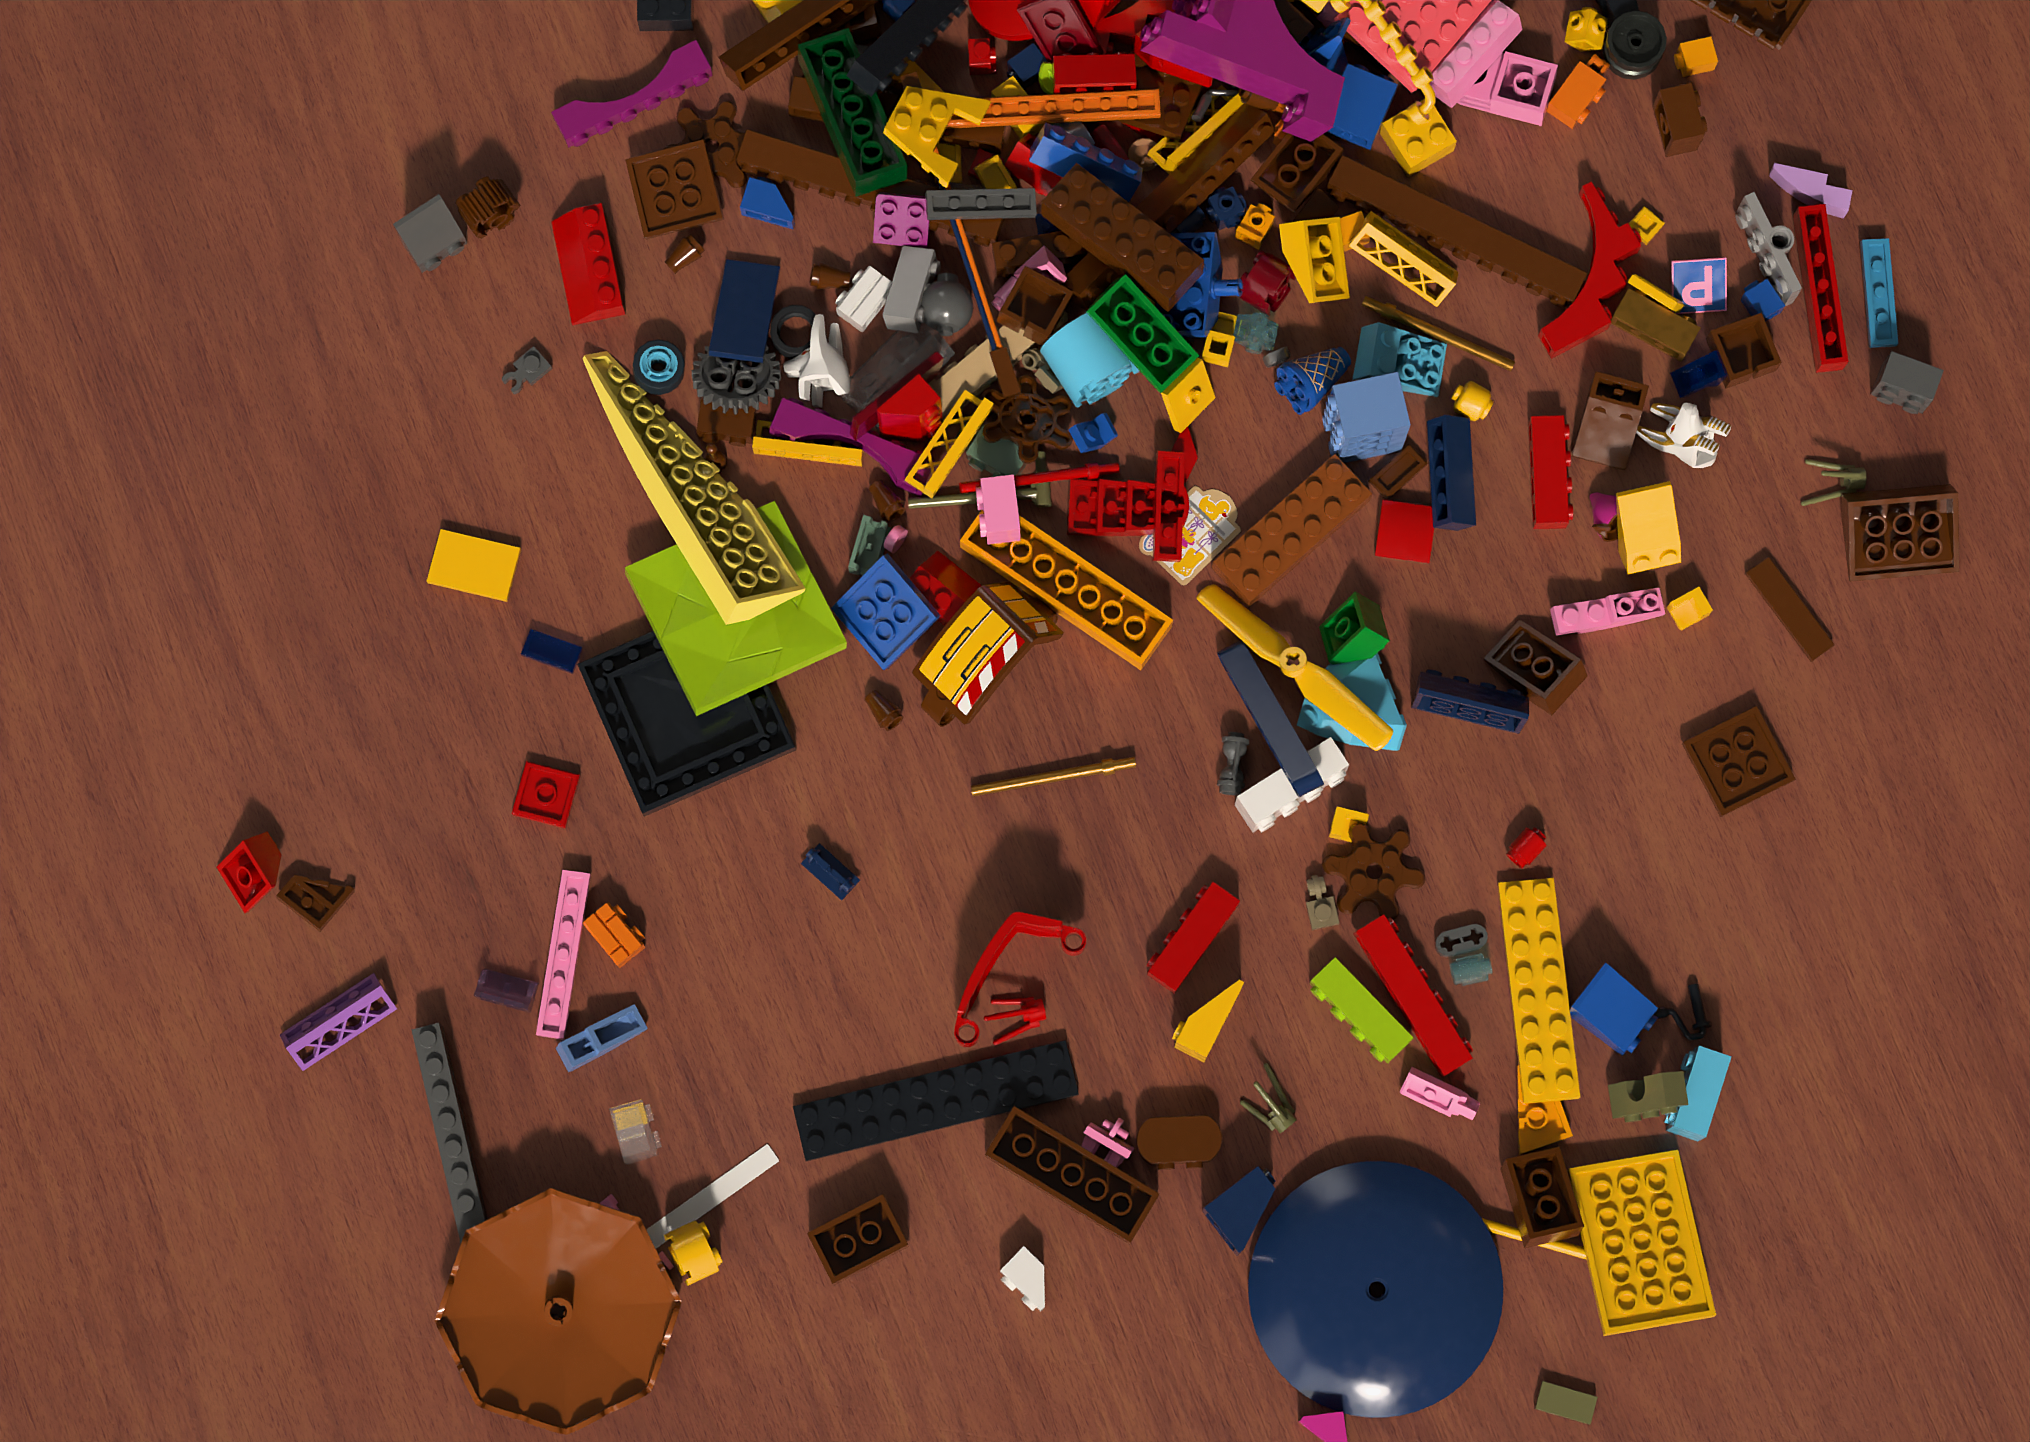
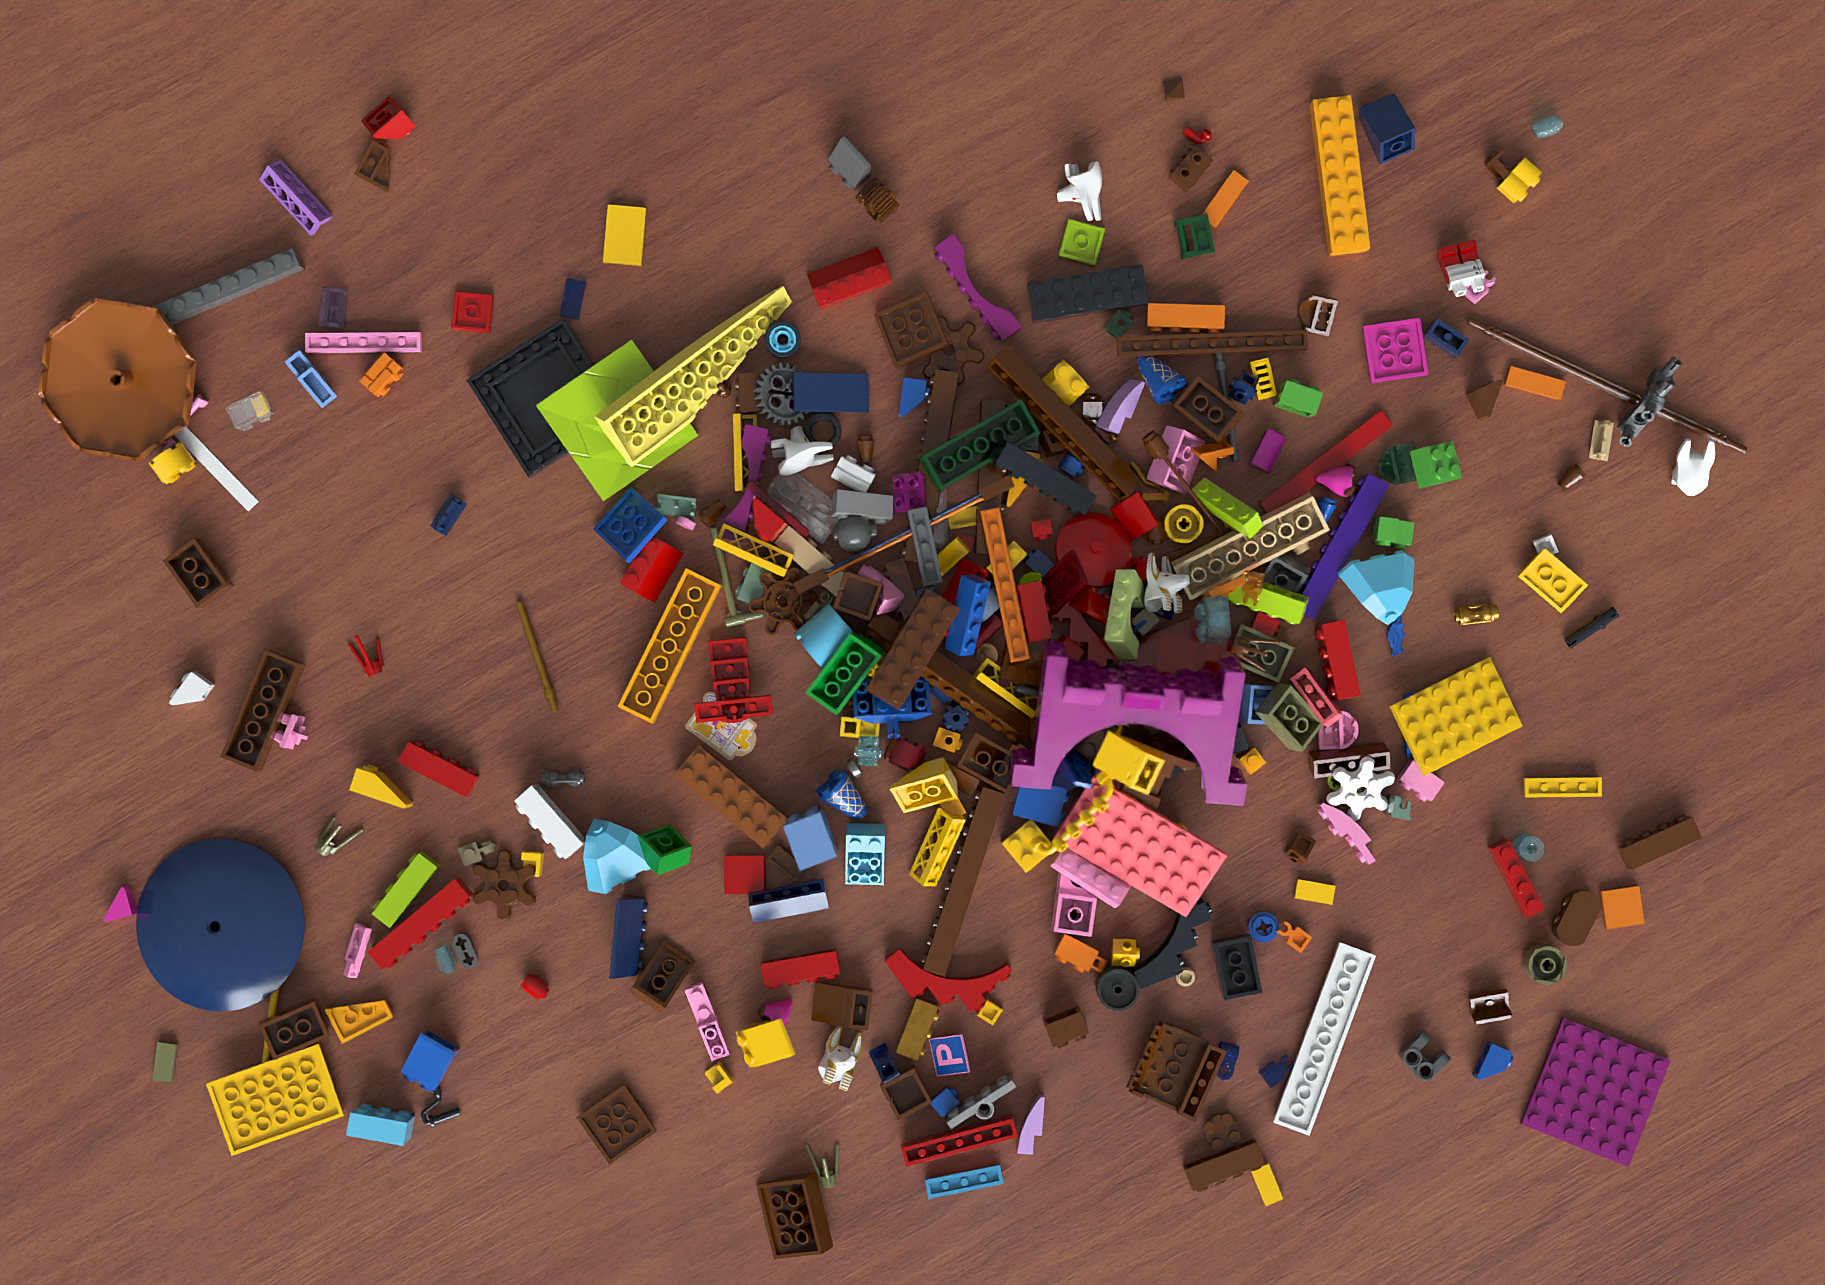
camera: 80 degrees right, 10 degrees up
(529, 367) = (770, 250): dark grey plate -> none
(684, 254) = (868, 345): reddish brown cone -> none
(884, 711) = (564, 533): reddish brown cone -> none
(921, 121) = (976, 495): yellow wing -> none
(935, 1100) = (303, 610): black plate -> none
(981, 649) = (612, 597): panel -> none
(1000, 509) = (706, 592): bright pink brick -> none
(1015, 923) = (424, 649): red panel -> none
(1090, 471) = (753, 650): red bar -> none
(1094, 433) = (780, 648): blue bracket -> none
(1179, 1141) = (299, 778): reddish brown brick -> none
(1185, 444) = (780, 713): red slope -> none
(1188, 395) = (813, 711): yellow plate -> none
(1240, 1208) = (257, 827): dark blue slope -> none
(1270, 718) = (590, 800): dark blue beam -> none
(1315, 682) = (620, 828): yellow piece -> none
(1388, 311) = (899, 842): pearl gold bar -> none
(1472, 401) = (842, 908): yellow head -> none
(1538, 990) = (437, 1007): yellow plate -> none
(1648, 1096) = (368, 1096): olive arch -> none
(1656, 293) = (938, 1026): yellow tile -> none
(1696, 56) = (1116, 1032): light orange brick -> none
(1789, 609) = (729, 1145): reddish brown tile -> none
(1906, 383) = (899, 1208): dark grey brick -> none

